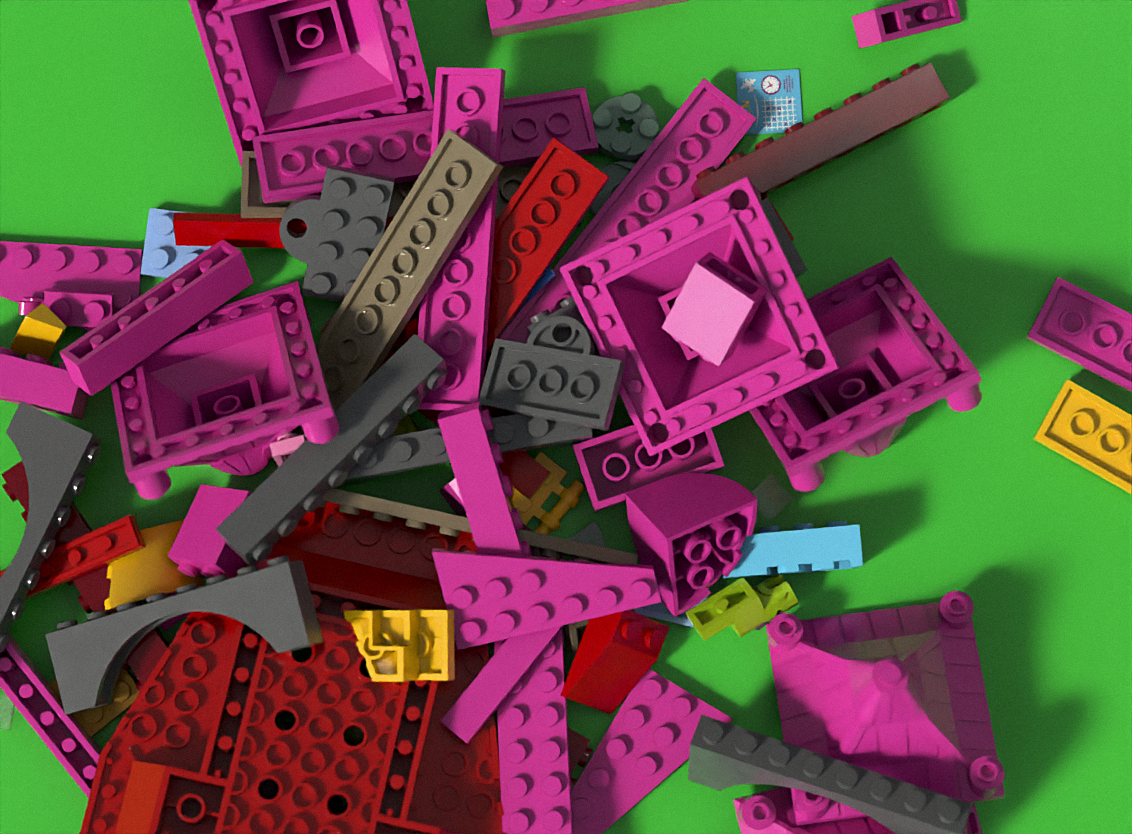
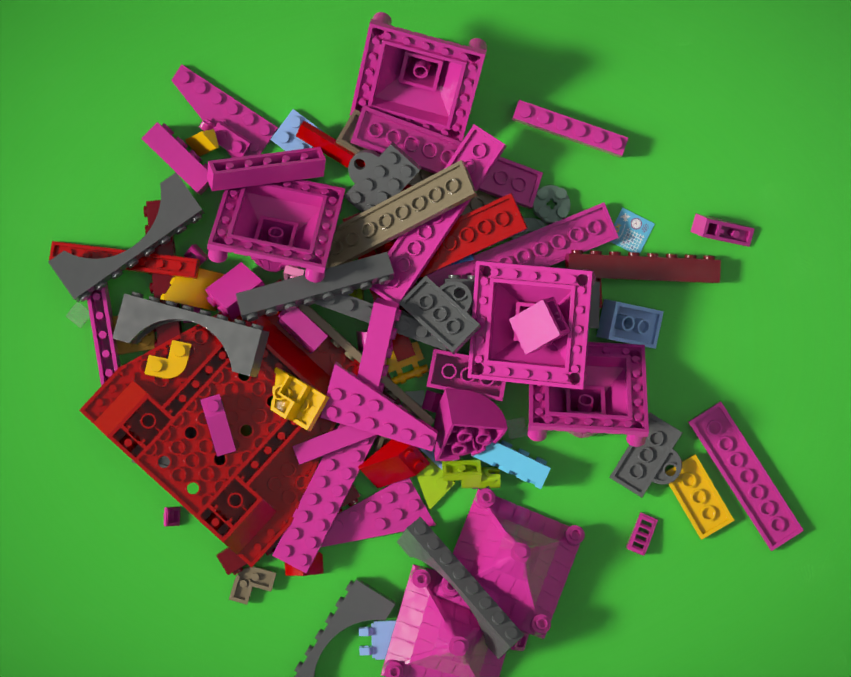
camera: 30 degrees right, 5 degrees up
(121, 508) = (197, 253): none -> dark pink slope
(184, 699) = (172, 366): none -> yellow plate
(304, 751) = (218, 425): none -> dark pink slope
(351, 530) = (302, 329): none -> dark pink brick
(616, 530) = (431, 401): none -> dark pink slope
(692, 657) = (432, 483): none -> lime wing
(849, 238) = (629, 323): none -> light blue slope
(1000, 430) = (648, 462): none -> dark grey plate
(1049, 576) = (630, 546): none -> dark pink slope

